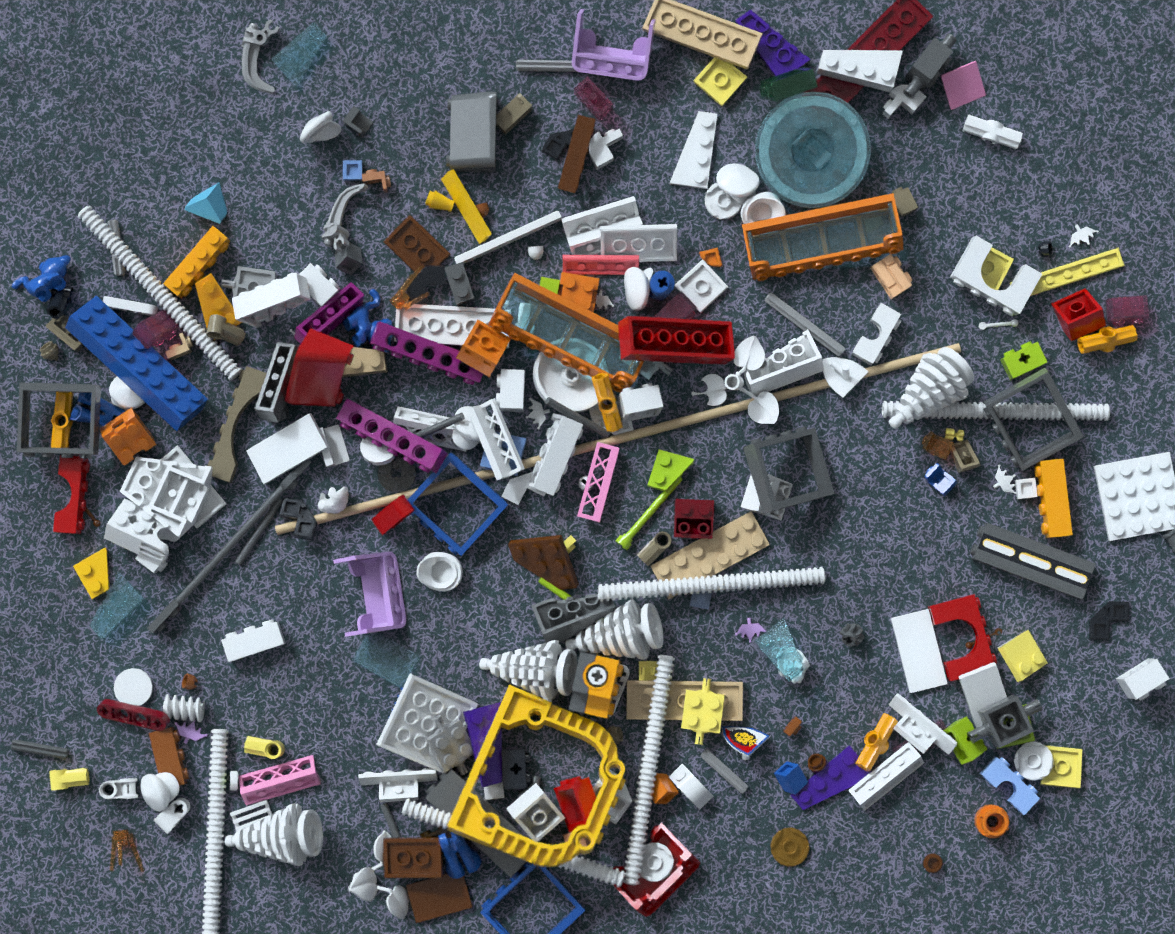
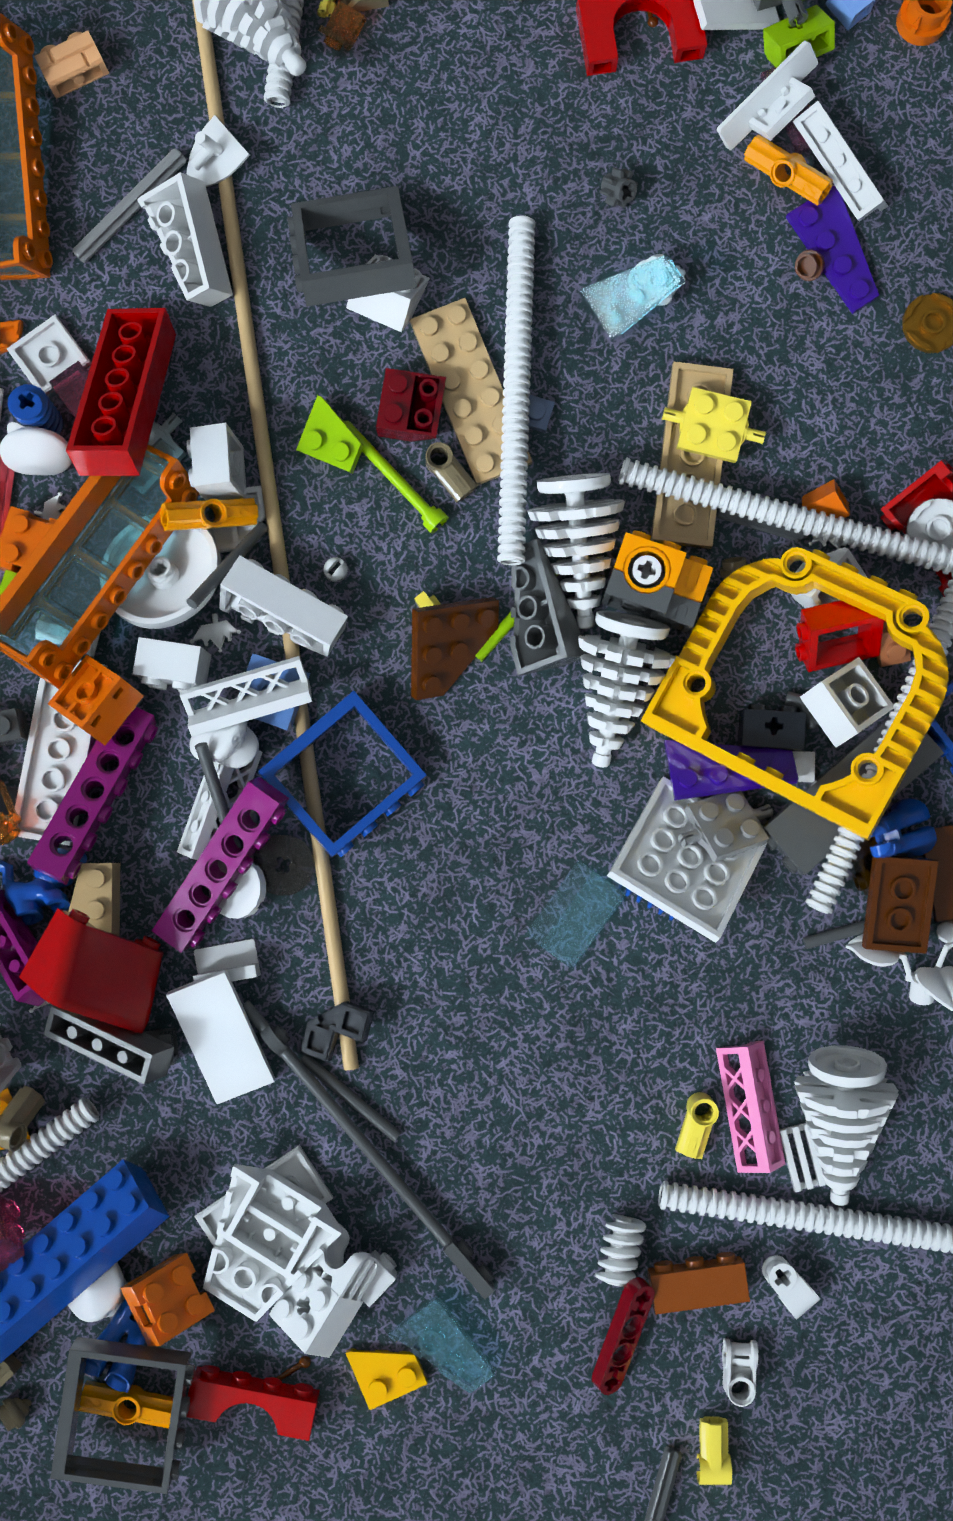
camera: 80 degrees left, 0 degrees up
(119, 839) = (821, 1377): clear orange plant -> none
(133, 687) = (577, 1329): white tile -> none
(159, 790) = (749, 1305): white piece -> none
(180, 350) = (39, 1198): tan bracket -> none
(189, 681) = (578, 1237): dark orange hinge -> none
(189, 732) = (659, 1243): lavender piece -> none
(224, 460) = (229, 1142): dark tan arch -> none
(233, 780) = (745, 1180): white tile -> none
(253, 640) = (524, 1126): white brick -> none
(336, 502) = (316, 965): white hair -> none
(381, 592) = (469, 911): lavender windscreen -> none
(393, 514) = (347, 876): red beam -> none
(398, 785) = (779, 916): white bracket -> none
(440, 571) = (448, 812): white piece -> none
(516, 488) = (328, 676): white tile -> none
(604, 488) = (339, 536): bright pink fence -> none
(647, 670) = (639, 506): light yellow tile -> none
(691, 786) = (826, 459): white brick -> none
(724, 771) = (807, 407): light grey axle -> none
(744, 739) = (764, 367): shield -> none
(748, 355) = (164, 285): white plant -> none
(750, 629) = (592, 343): lavender piece -> none
(791, 777) = (828, 306): blue panel -> none
(793, 726) = (750, 294): dark orange plate -> none
(885, 320) = (139, 80): white arch -> none
(919, 650) = (653, 94): white tile -> none
(940, 479) = (395, 29): bracket -> none

